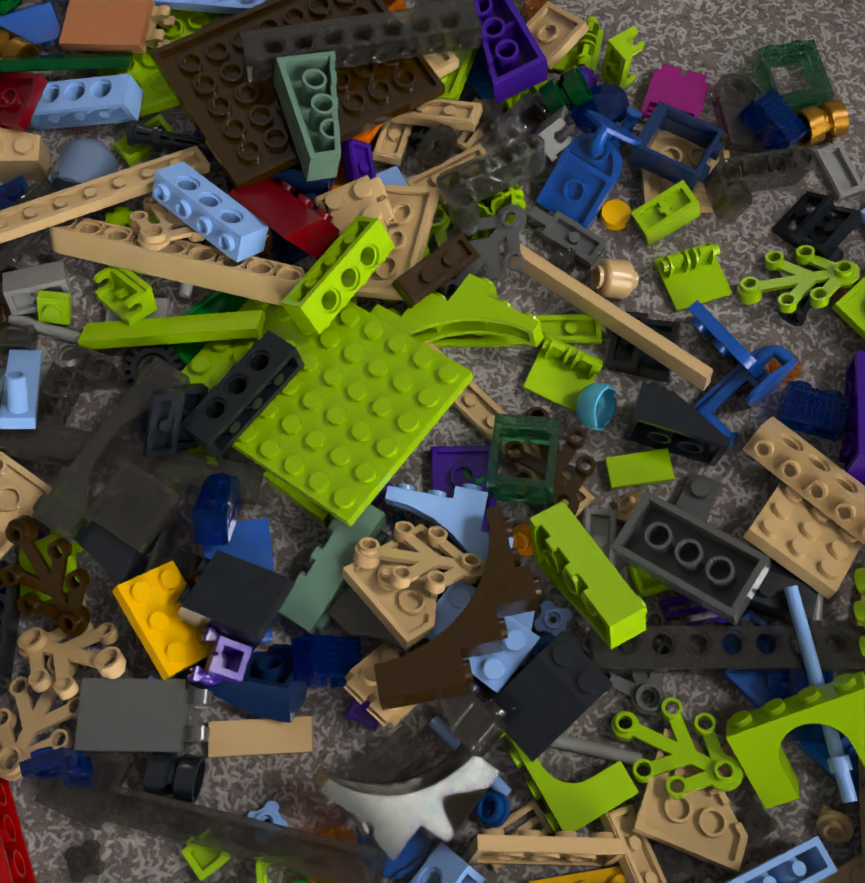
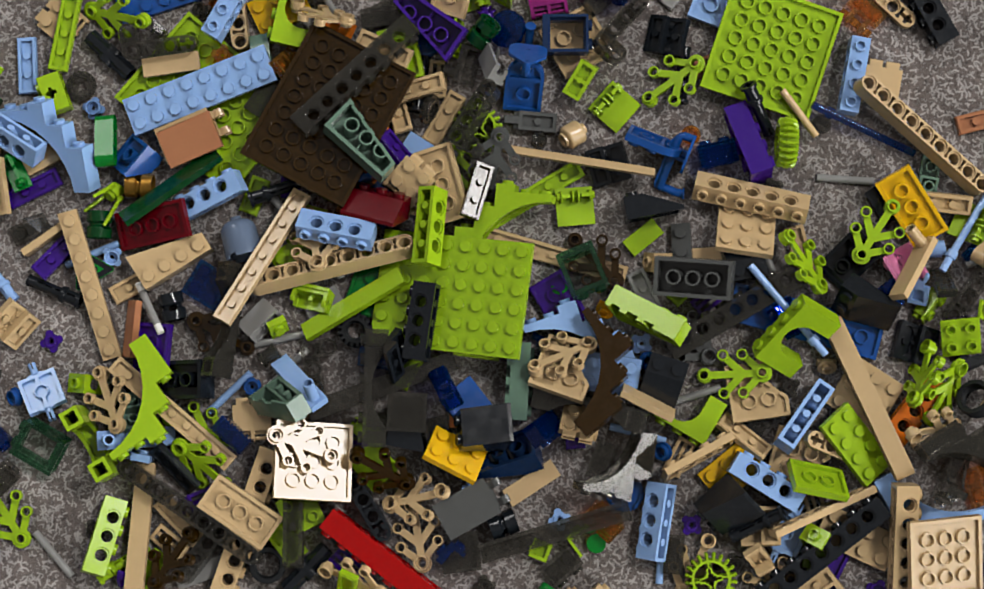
camera: 25 degrees left, 15 degrees up
(225, 661) = (496, 459): dark purple piece -> none
(511, 709) = (647, 402): none -> tan tile
(596, 405) = (602, 216): medium azure hair -> none
(615, 214) = (551, 91): yellow tile -> none

